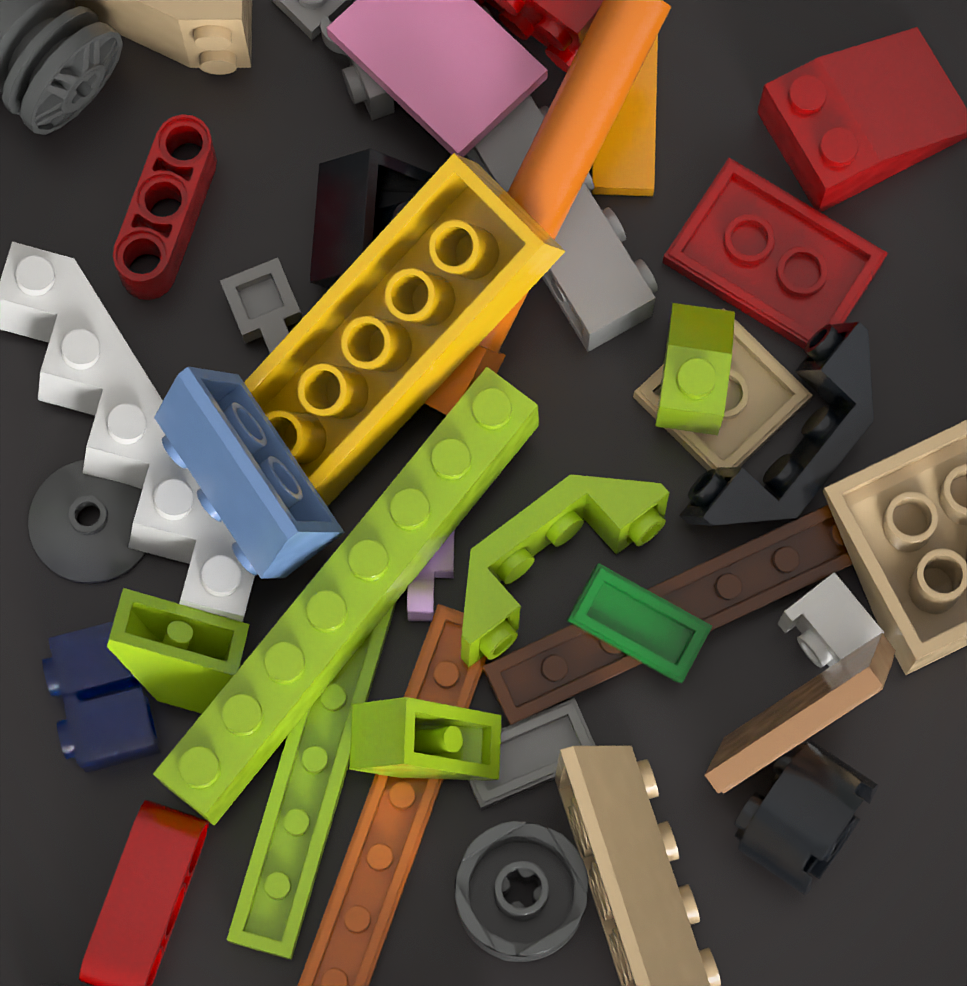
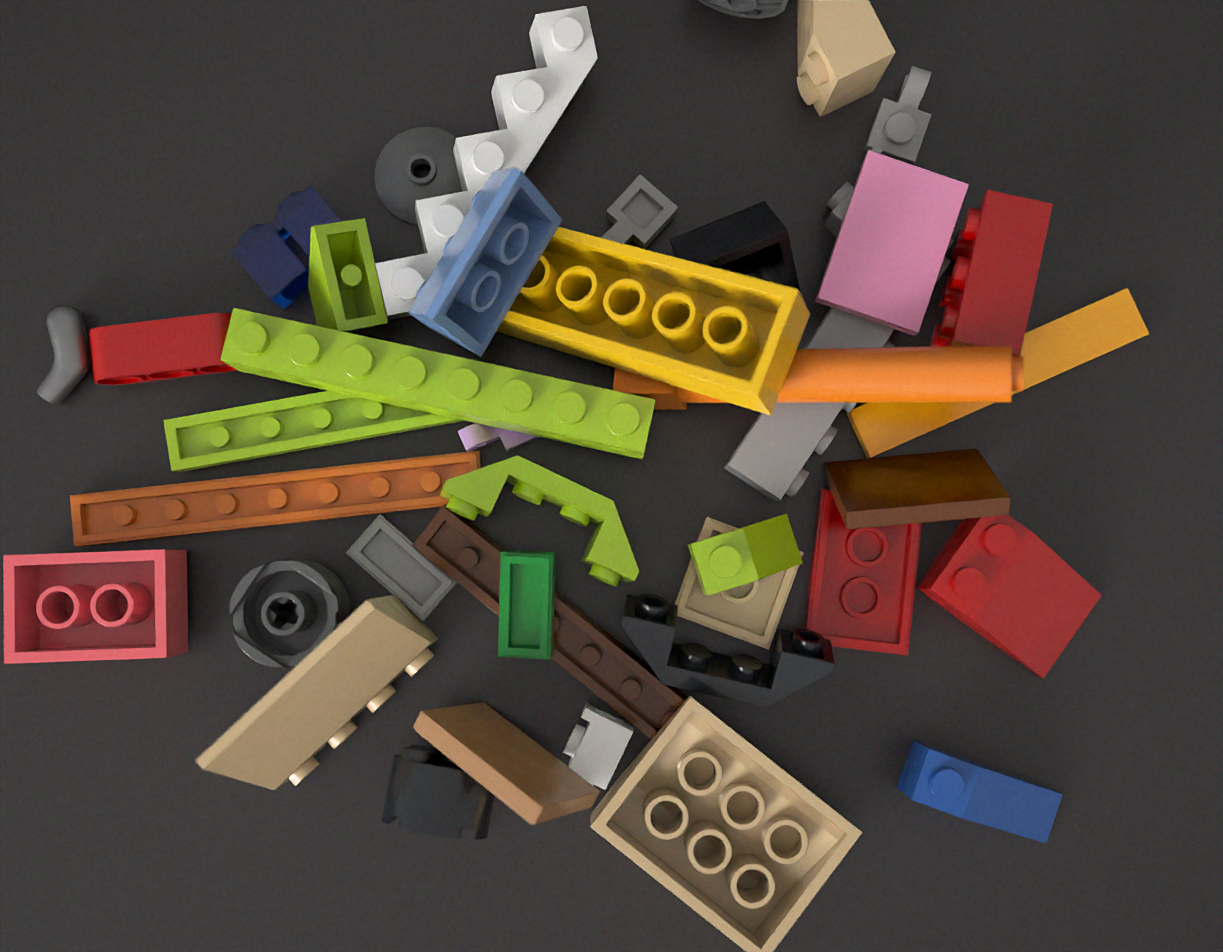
camera: 65 degrees right, 10 degrees up
(162, 179) = (694, 89): red beam -> none
(424, 740) = (364, 491): lime slope -> none
(710, 156) = (915, 488): none -> reddish brown tile

